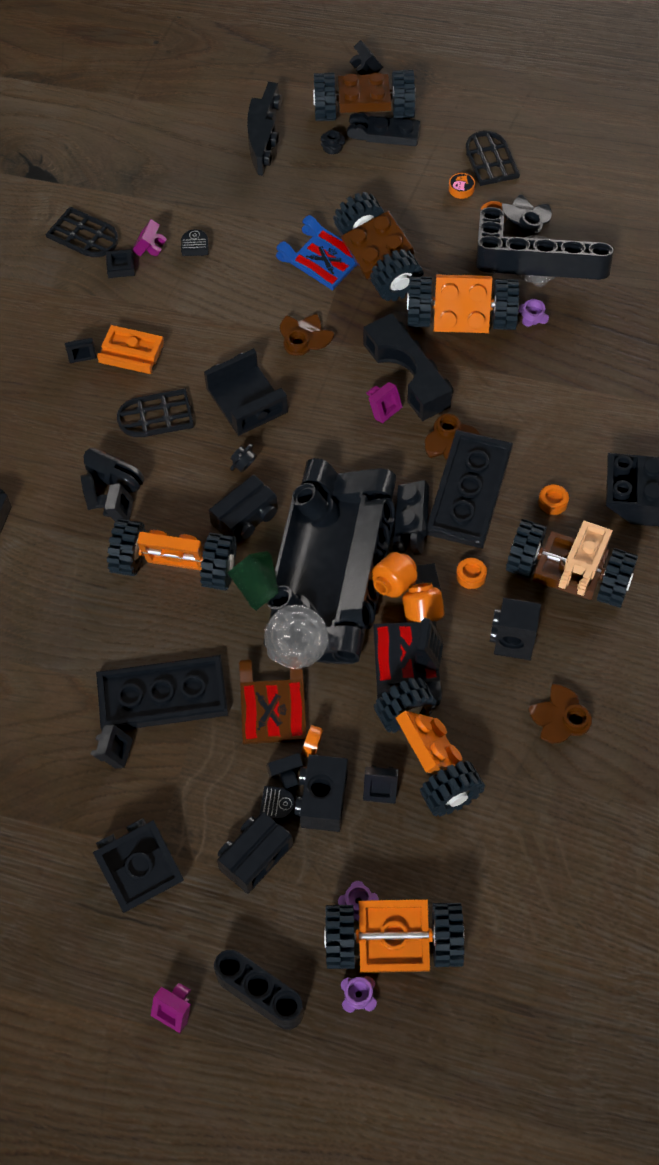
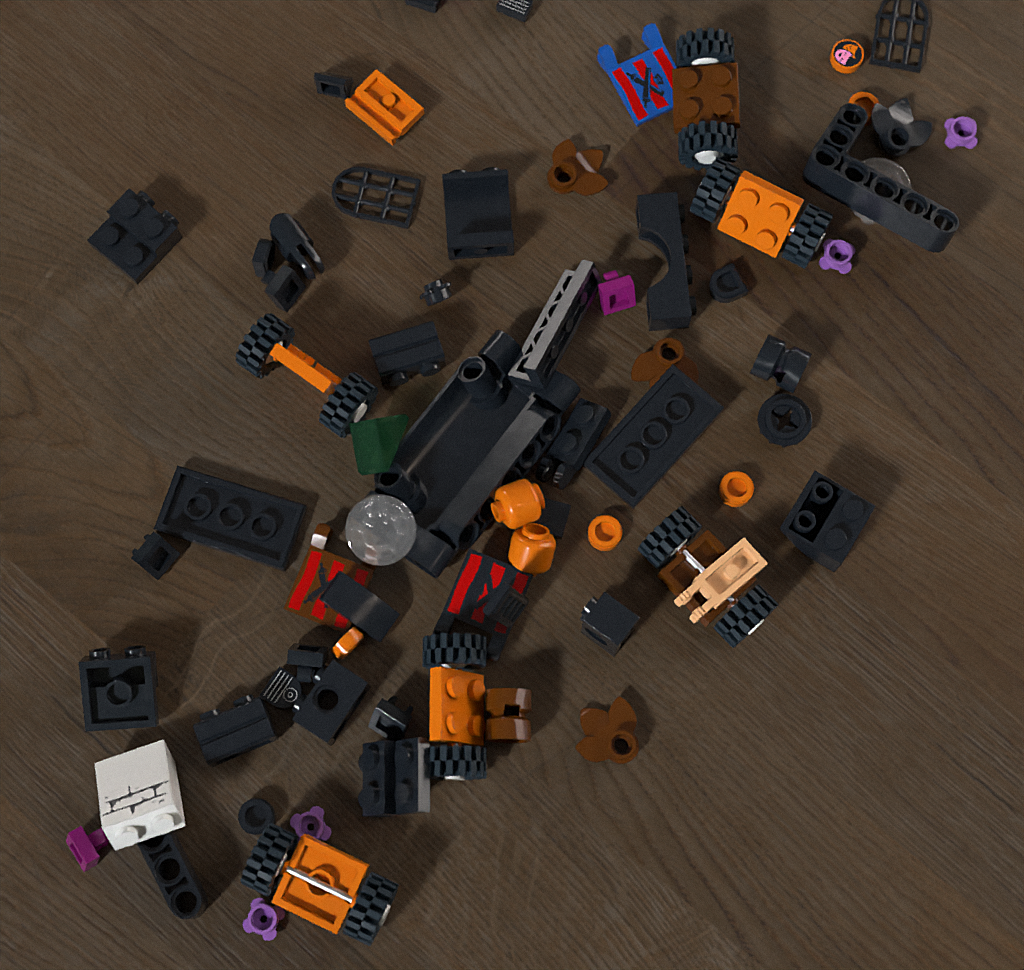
camera: 25 degrees right, 15 degrees up
(201, 935) = (139, 795): none -> white brick
(306, 706) = (359, 606): none -> black slope
(307, 915) = (256, 816): none -> black tile
(356, 443) = (556, 326): none -> black fence
(411, 822) = (395, 777): none -> black plate
(463, 365) = (727, 285): none -> black tile
(473, 732) = (508, 728): none -> reddish brown wheel
(526, 397) = (780, 363): none -> black wheel
(572, 432) = (779, 406): none -> black gear
(573, 200) = (964, 125): none -> medium lavender plate

